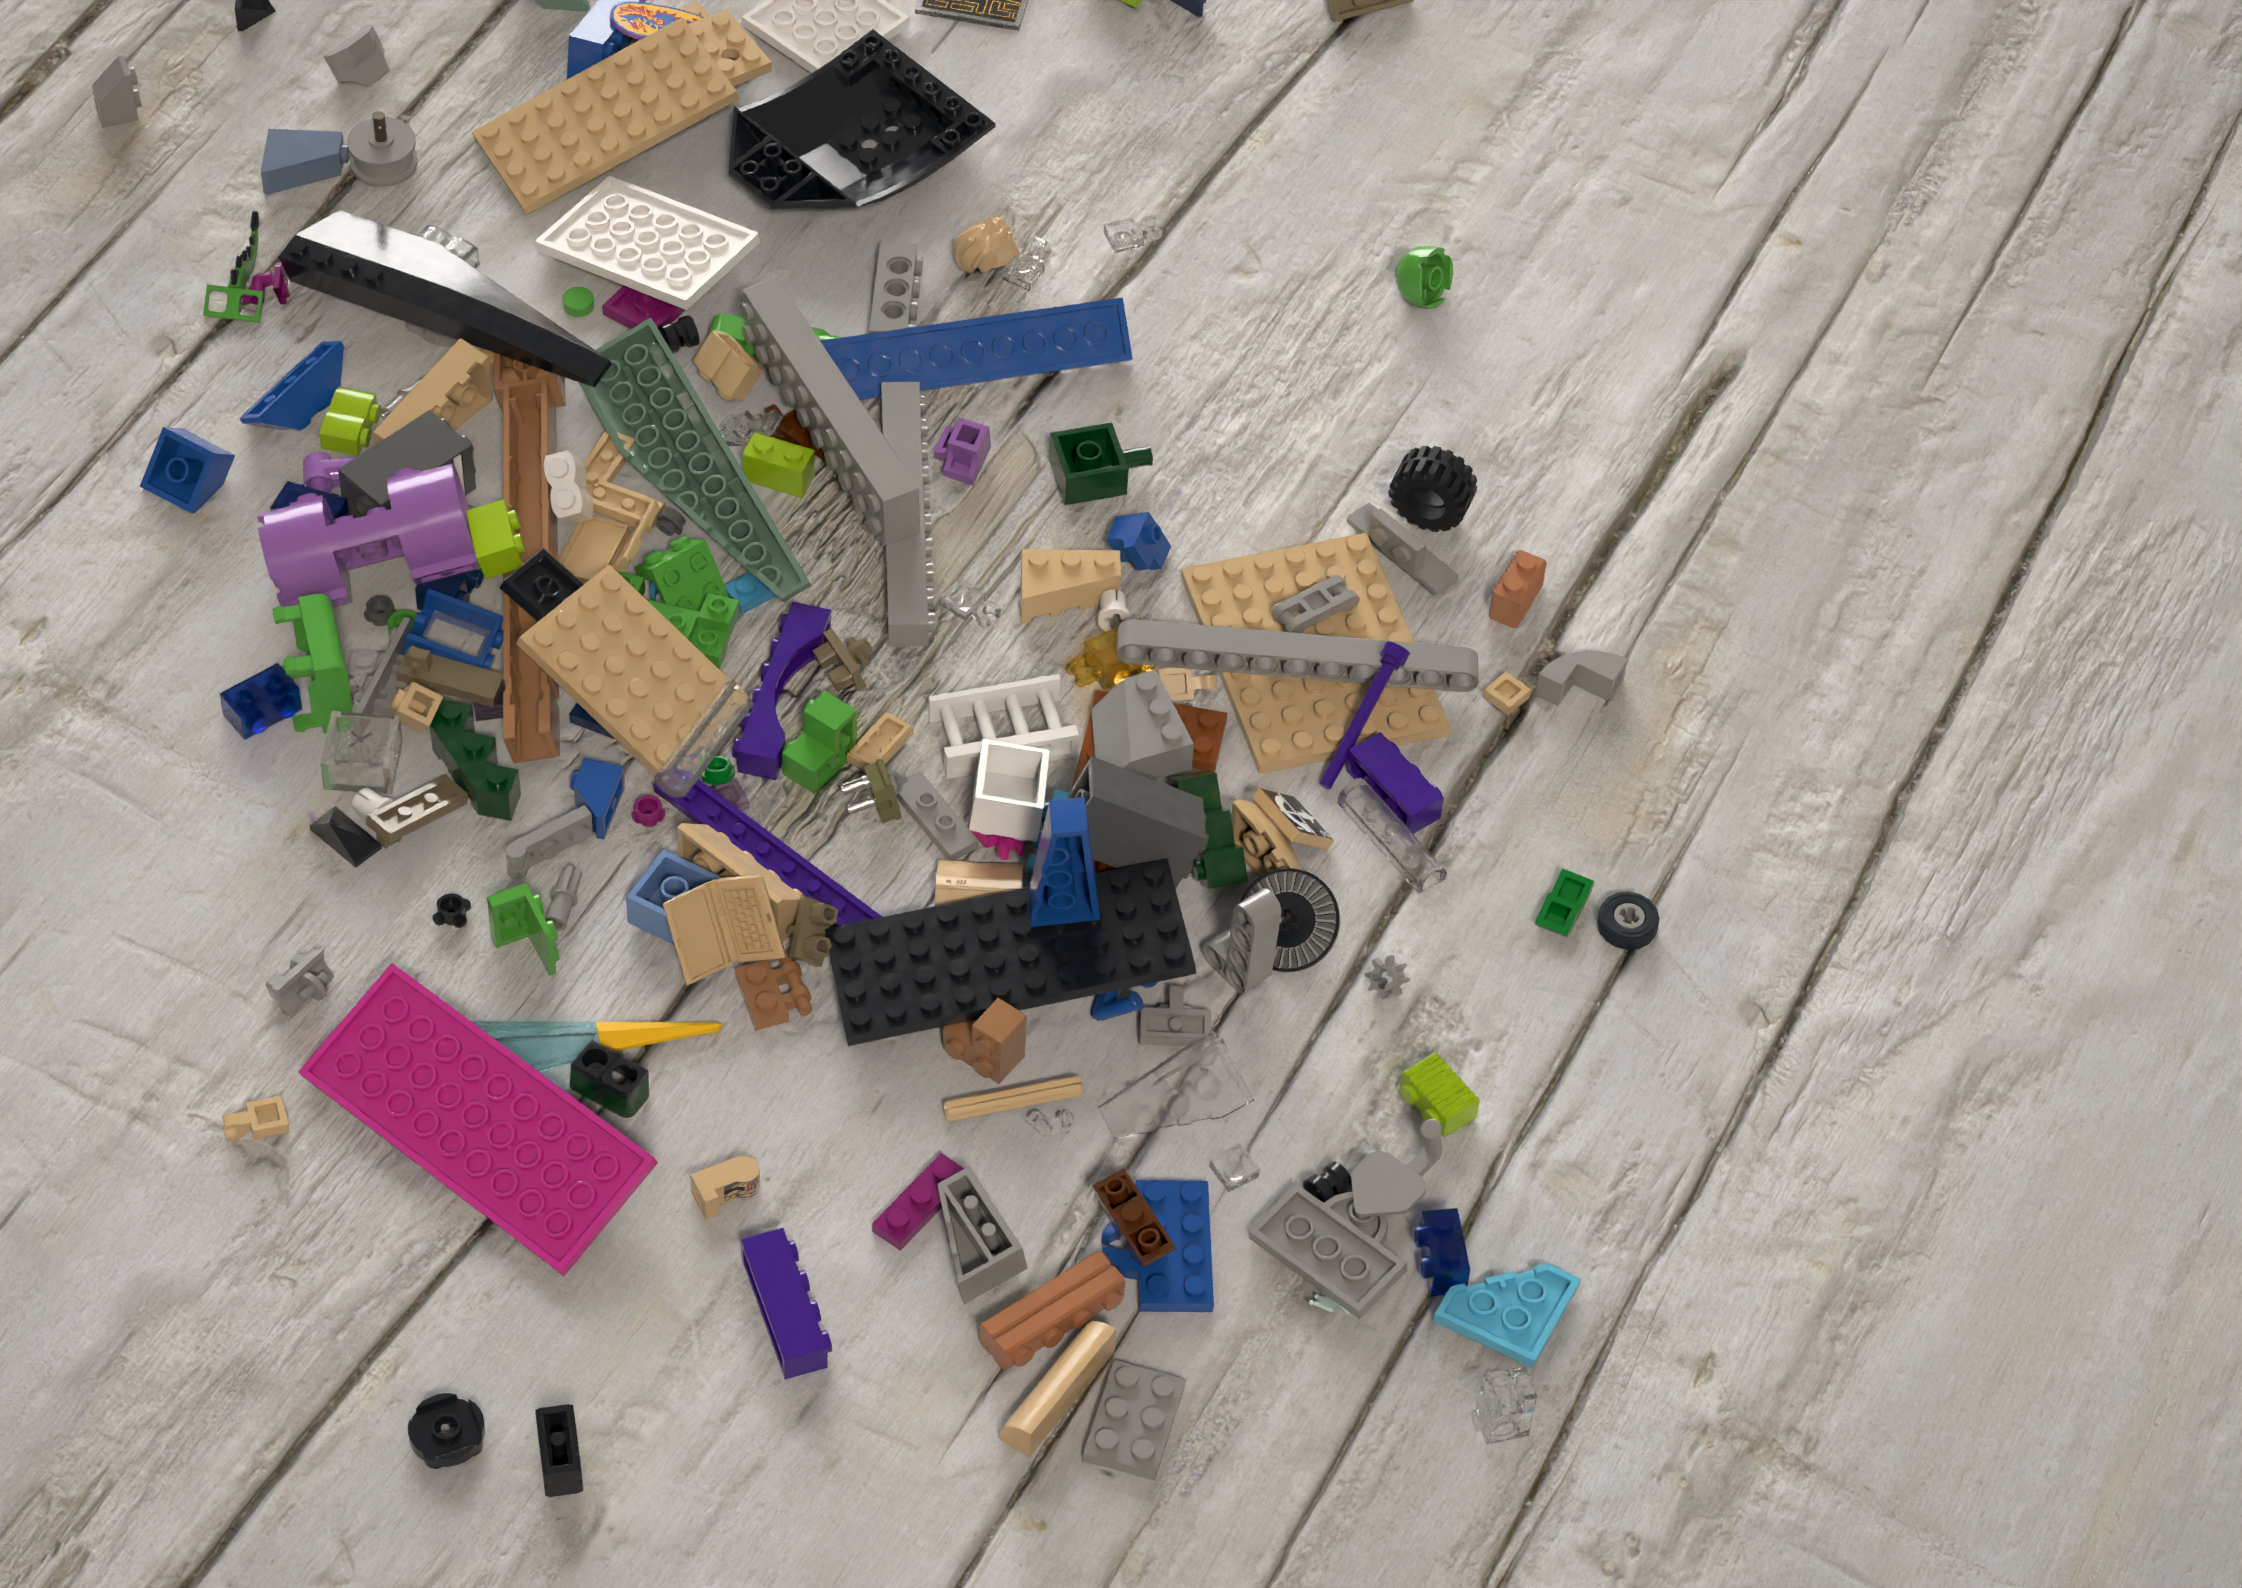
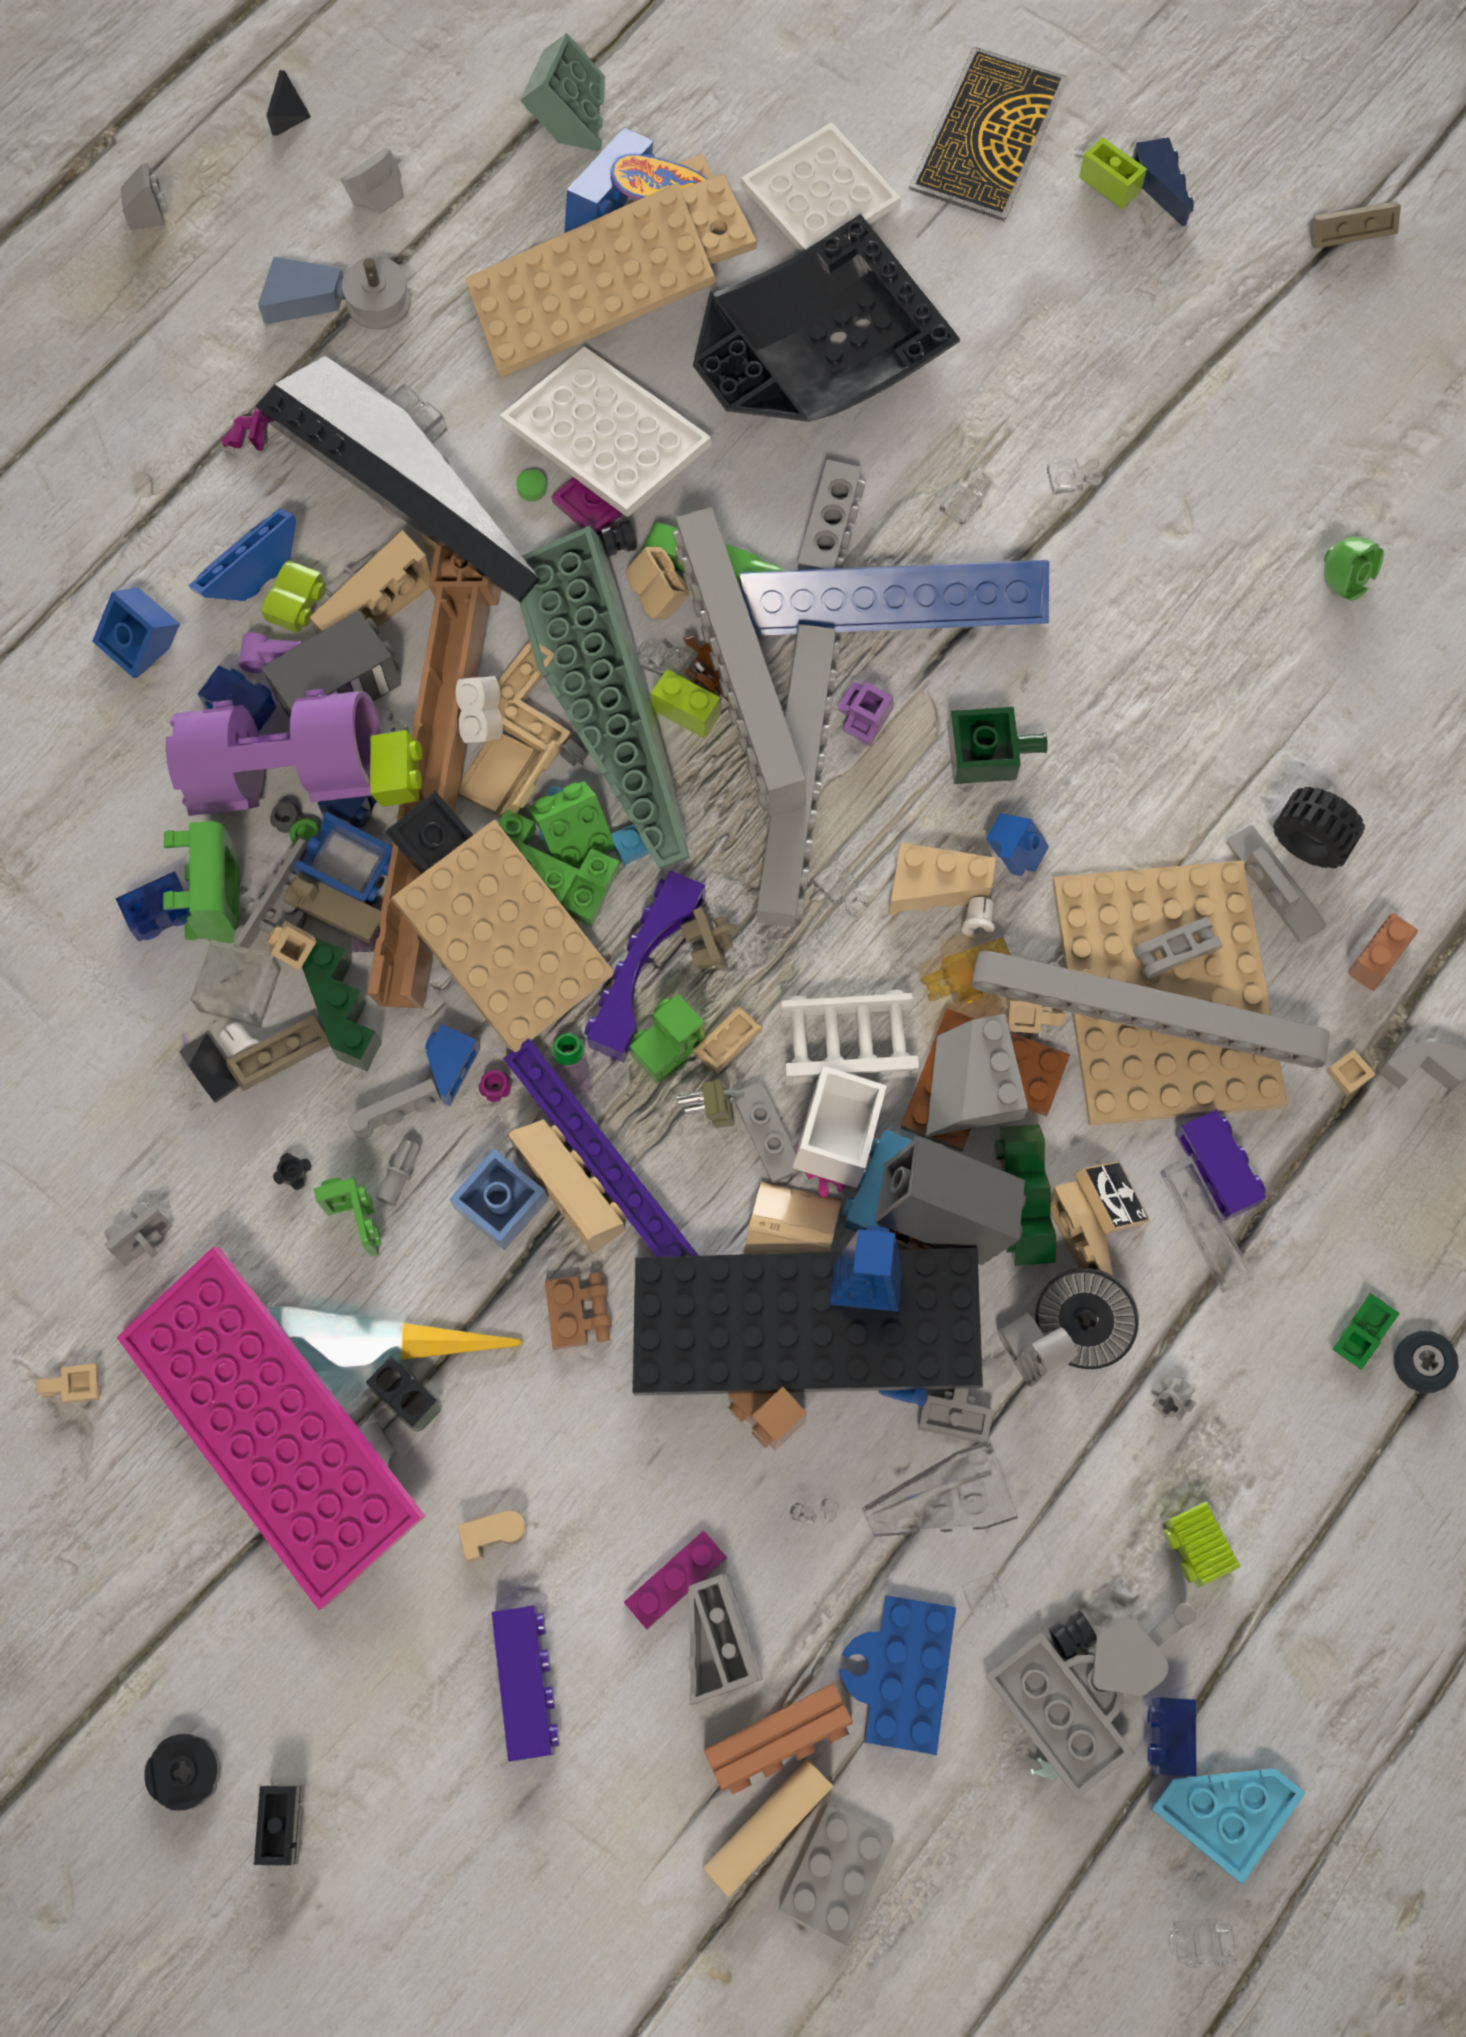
camera: 15 degrees right, 20 degrees up
(237, 282) = (217, 421): bright green piece -> none
(704, 740) = (557, 1022): clear brick -> none
(723, 925) = (533, 1239): tan piece -> none
(809, 934) = (620, 1256): dark tan hips -> none
(985, 246) = (927, 477): tan hair -> none
(1012, 1098) = (784, 1474): tan axle -> none
(1133, 1219) = (873, 1667): reddish brown slope -> none
(1392, 658) = (1242, 1038): dark purple piece -> none

